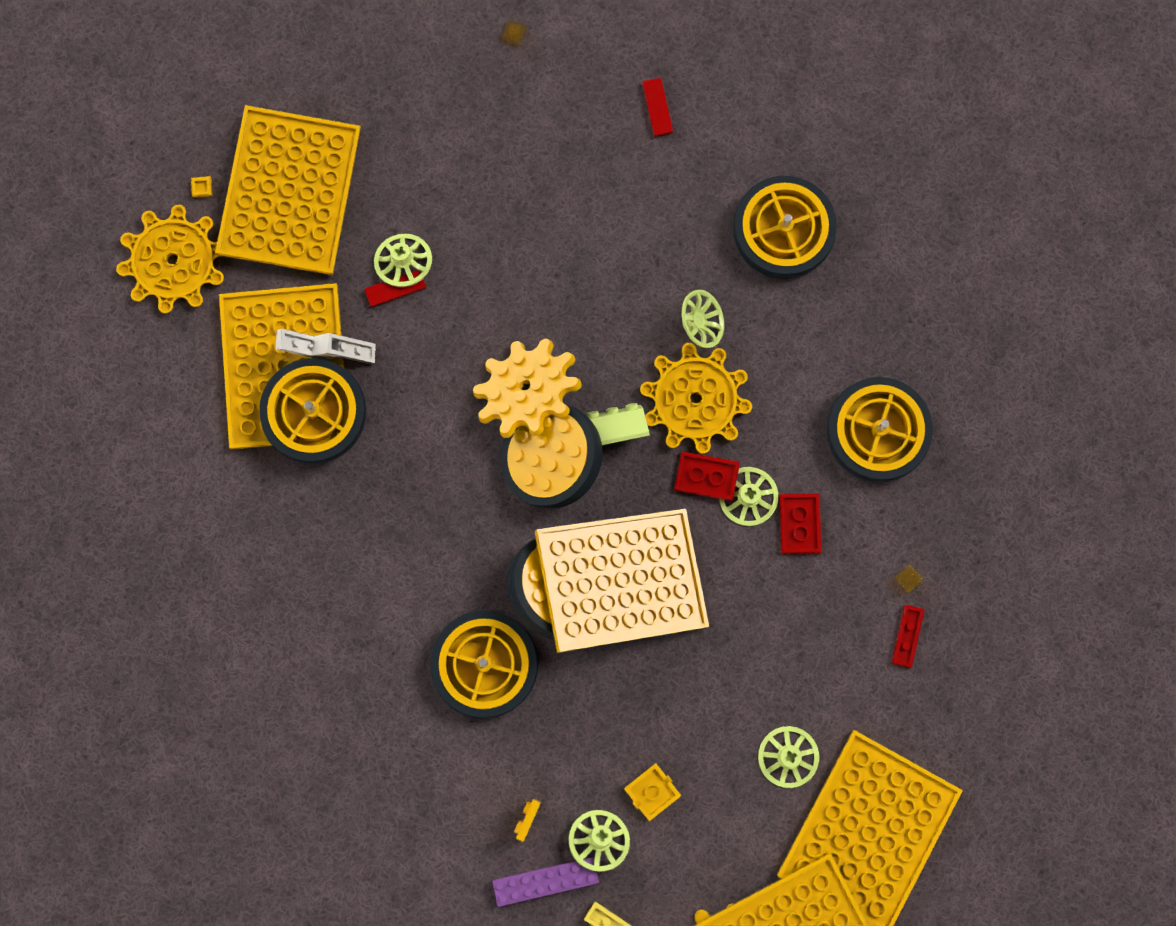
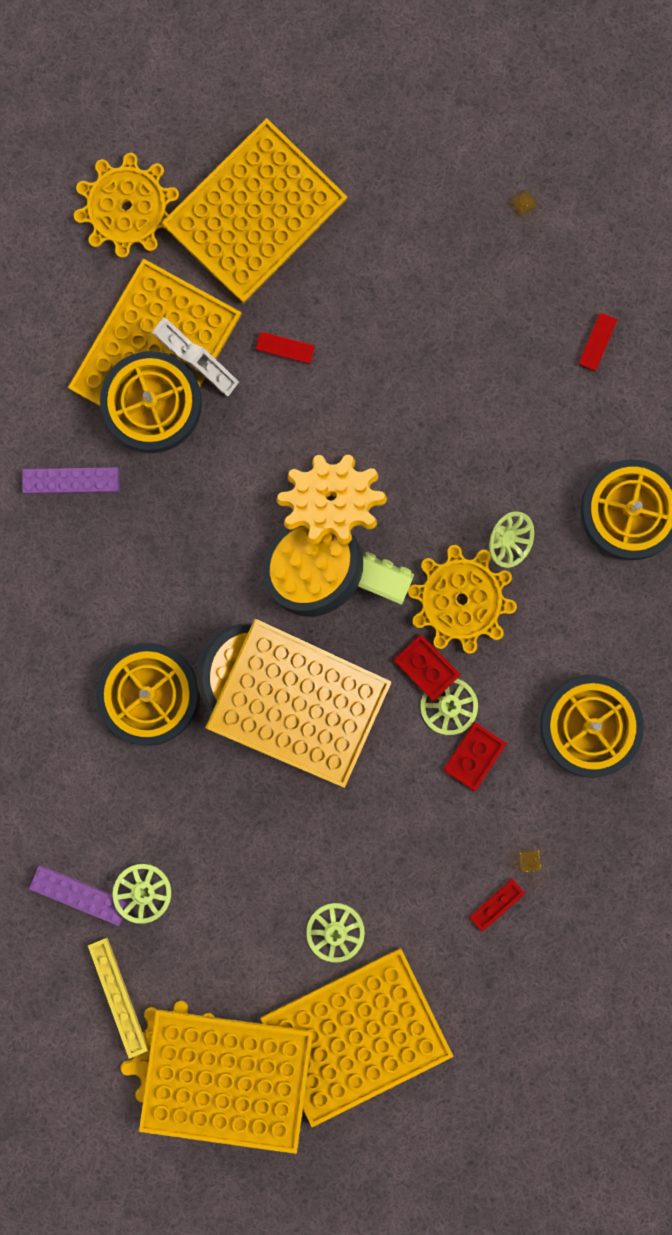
camera: 40 degrees right, 5 degrees up
(201, 187) = (189, 162): yellow tile -> none
(287, 527) = (70, 481): none -> medium lavender piece
(401, 257) = (306, 326): yellowish green wheel -> none
(523, 826) = (91, 841): yellow plate -> none
(652, 792) = (209, 885): yellow plate -> none

